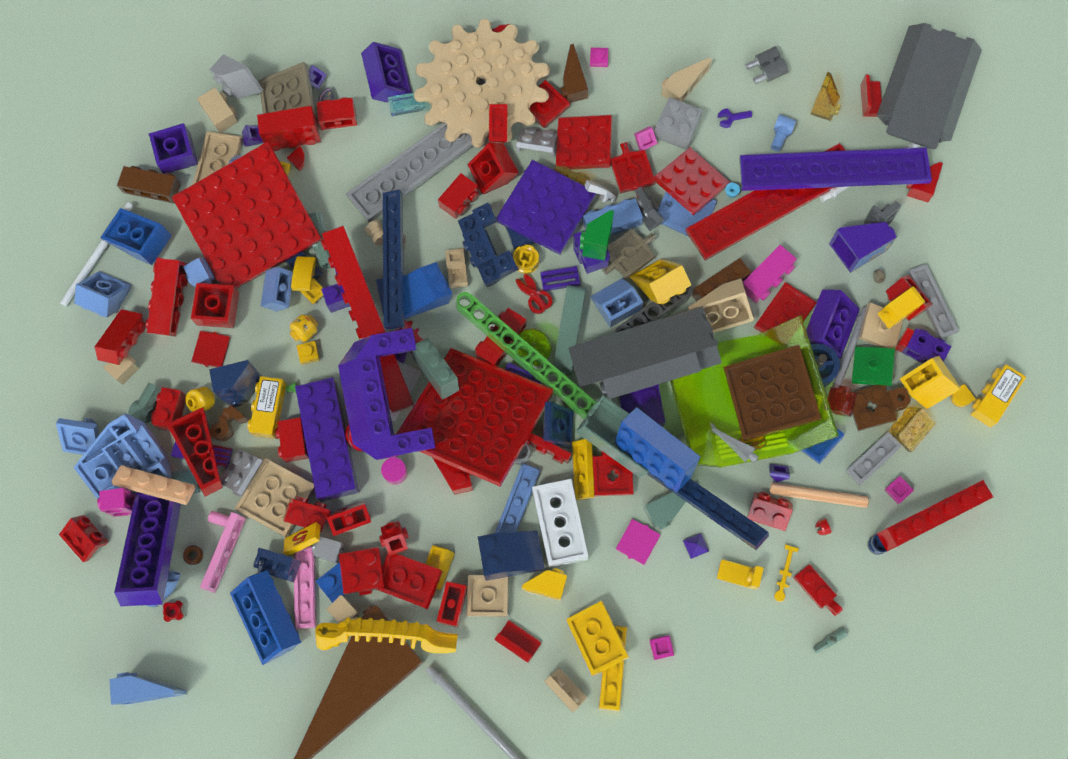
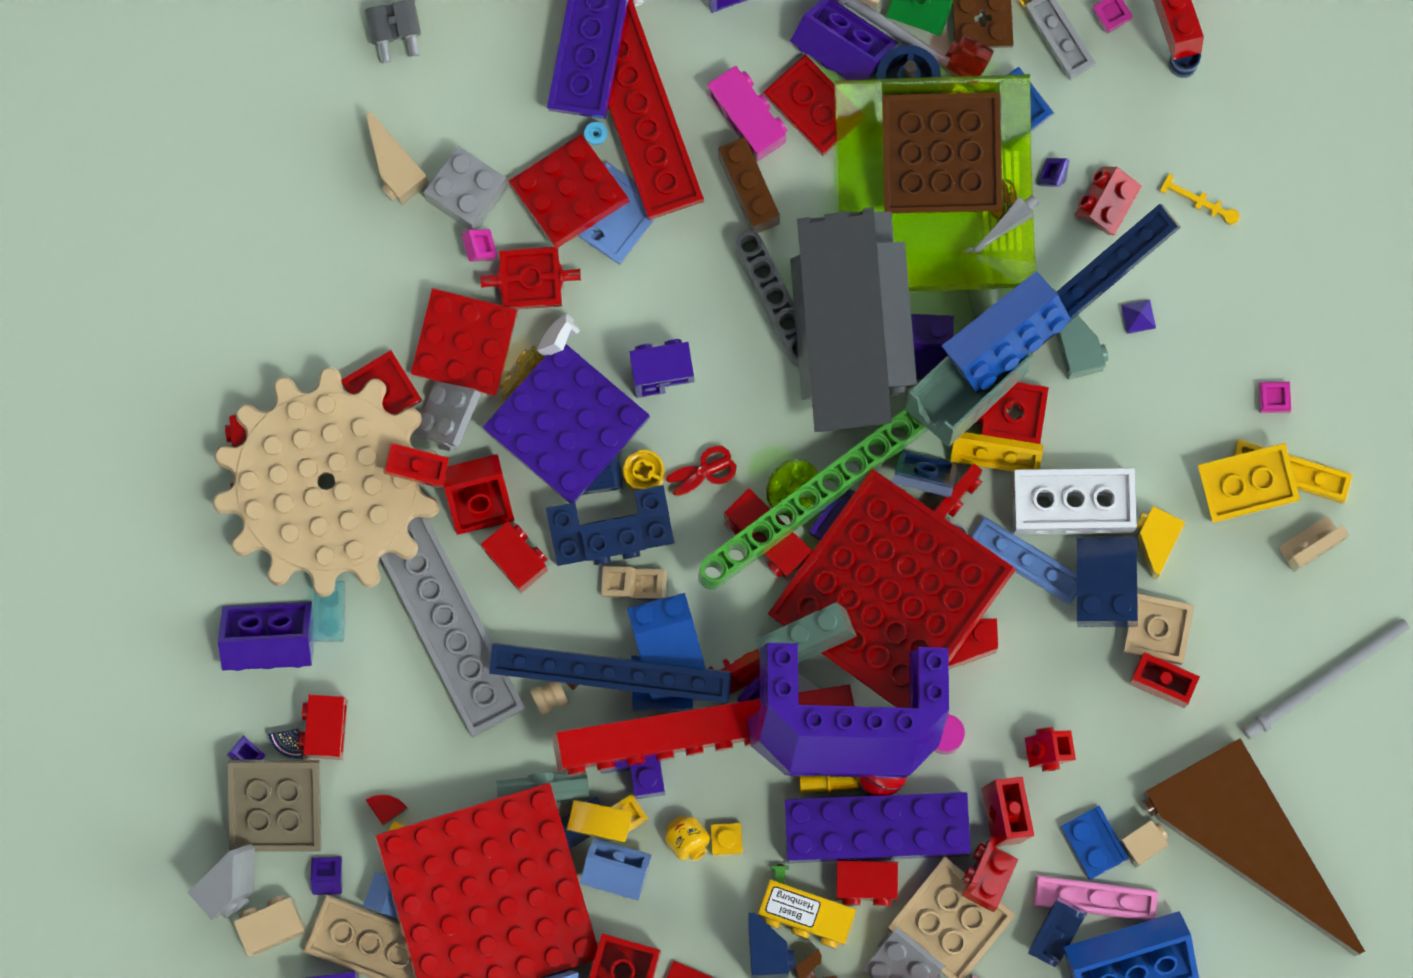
camera: 80 degrees left, 5 degrees up
(289, 128) = (340, 807): red brick -> none
(301, 539) = (1026, 887): yellow tile -> none
(328, 550) = (1047, 852): light grey brick -> none
(361, 571) = (1090, 805): red piece -> none
(410, 580) = (1116, 738): red plate -> none
(432, 641) = (1179, 845): yellow piece -> none
(440, 559) = (1101, 698): yellow slope -> none
(518, 641) = (1231, 598): red panel -> none
(559, 278) = (686, 402): dark purple tile -> none
(569, 327) = (772, 428): sand green beam -> none
(574, 83) = (352, 336): reddish brown slope -> none
(596, 237) = (660, 345): green slope -> none
(598, 57) = (314, 288): dark pink plate -> none
(617, 302) = (744, 347): medium blue slope -> none
(626, 215) = (606, 326): medium blue brick -> none
(629, 253) = (667, 310): dark tan plate -> none
(638, 541) = (1117, 397): dark pink piece -> none
(649, 210) = (608, 266): dark grey bracket -> none
(661, 280) = (729, 273): yellow slope -> none
(726, 306) = (791, 188): tan slope -> none
(732, 117) = (469, 103): dark purple bar -> none
(740, 574) = (1193, 262): yellow bracket -> none
(783, 128) = (507, 30): medium blue pin -> none
(818, 589) = (1232, 161): red plate -> none
(819, 495) = (1098, 126): light nougat axle -> none
(825, 528) = (1146, 129): red hinge -> none
(838, 635) = (1308, 168): sand green pin -> none

